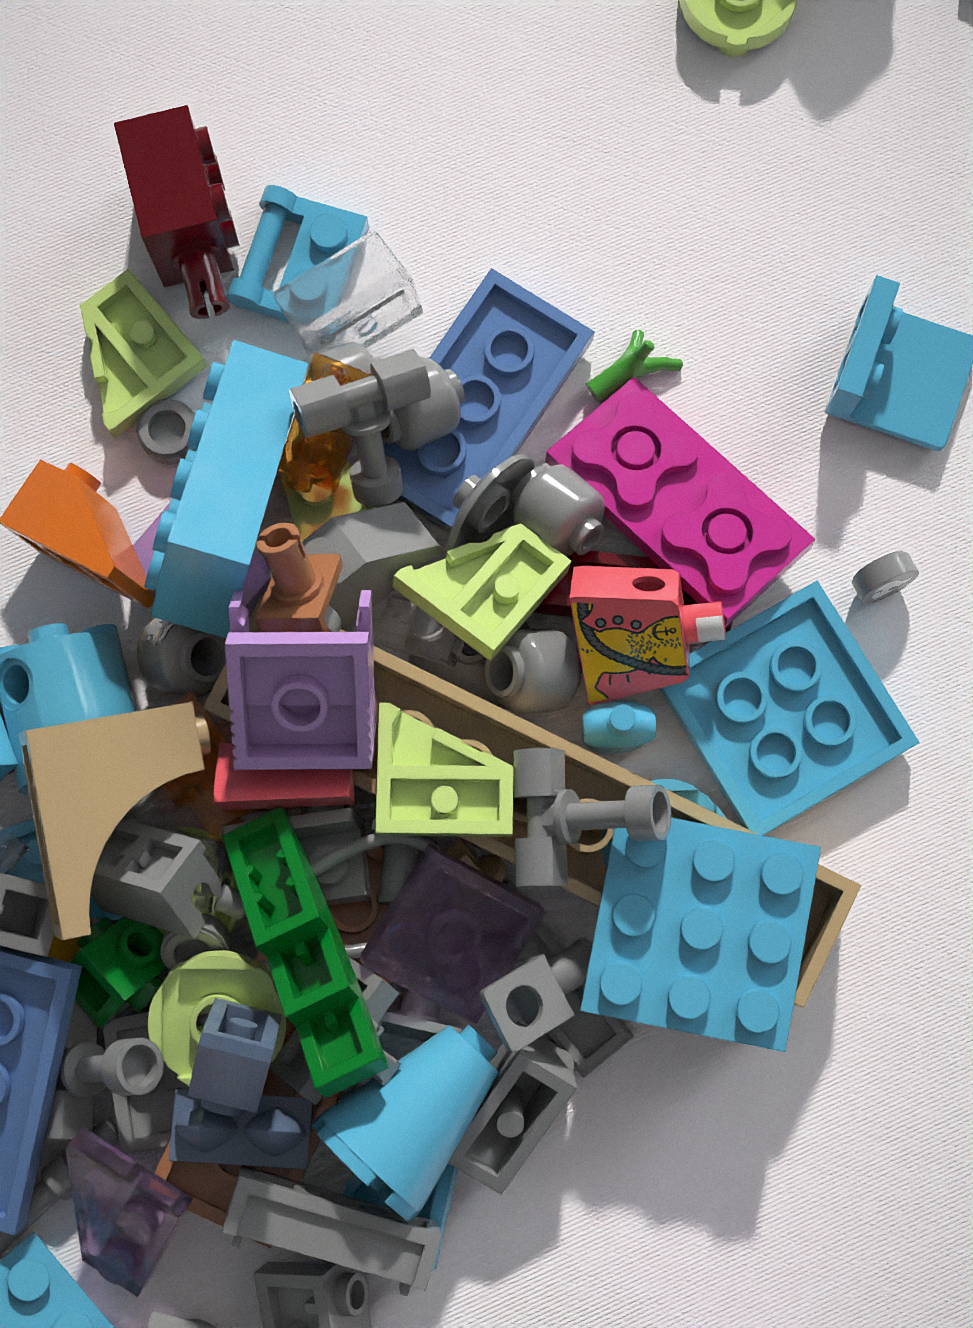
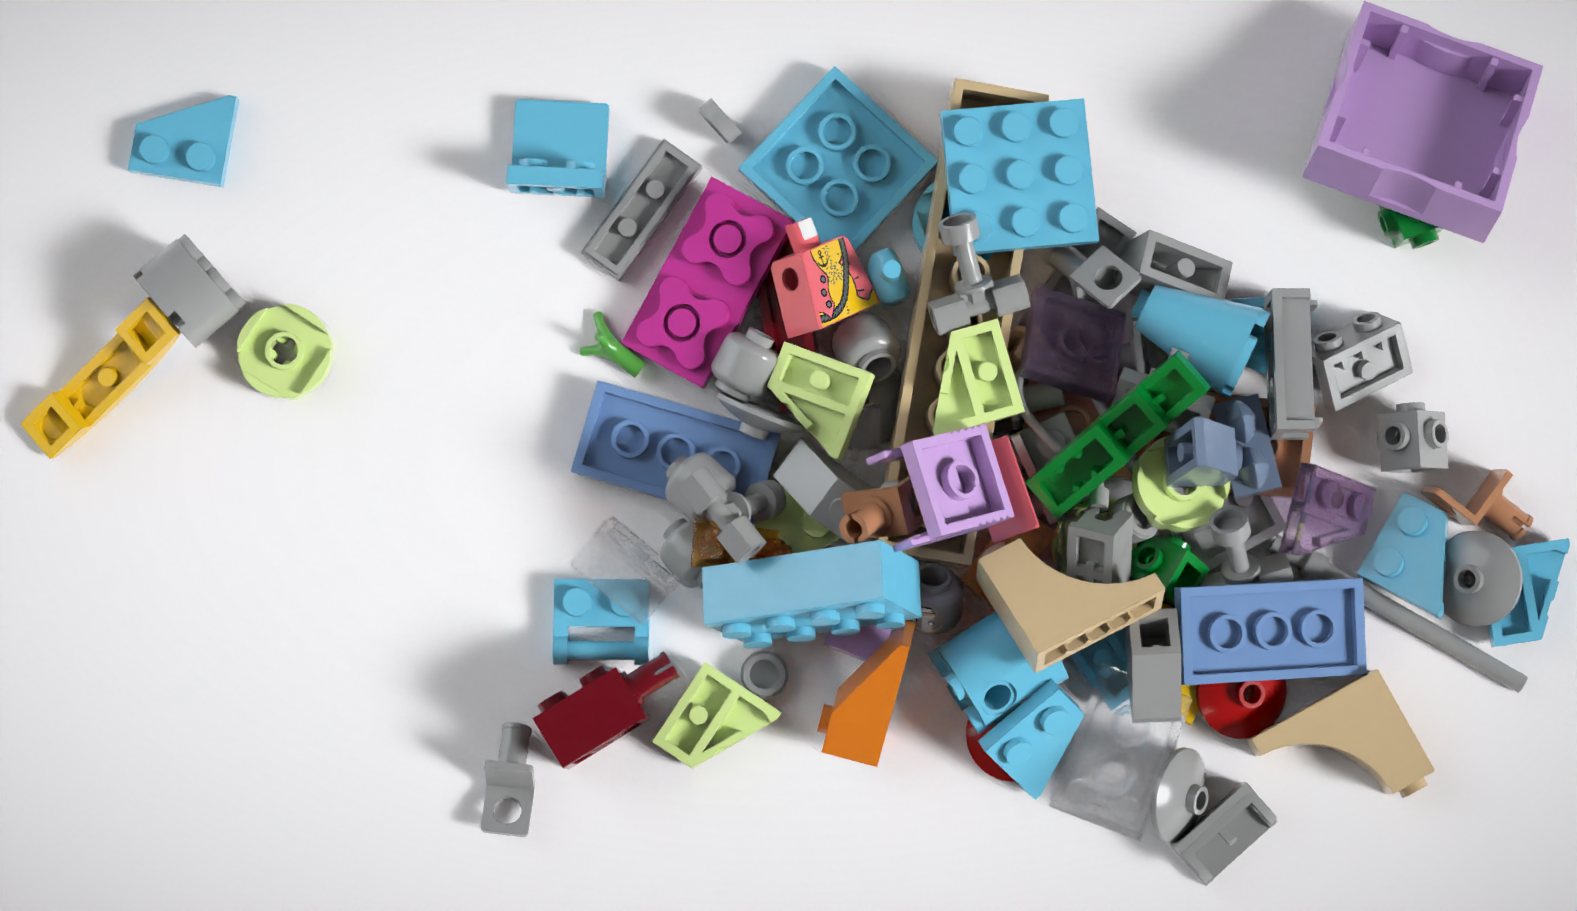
camera: 105 degrees left, 5 degrees up
(144, 93) = (510, 779): none -> light grey bracket
(796, 453) = (641, 209): none -> light grey tile

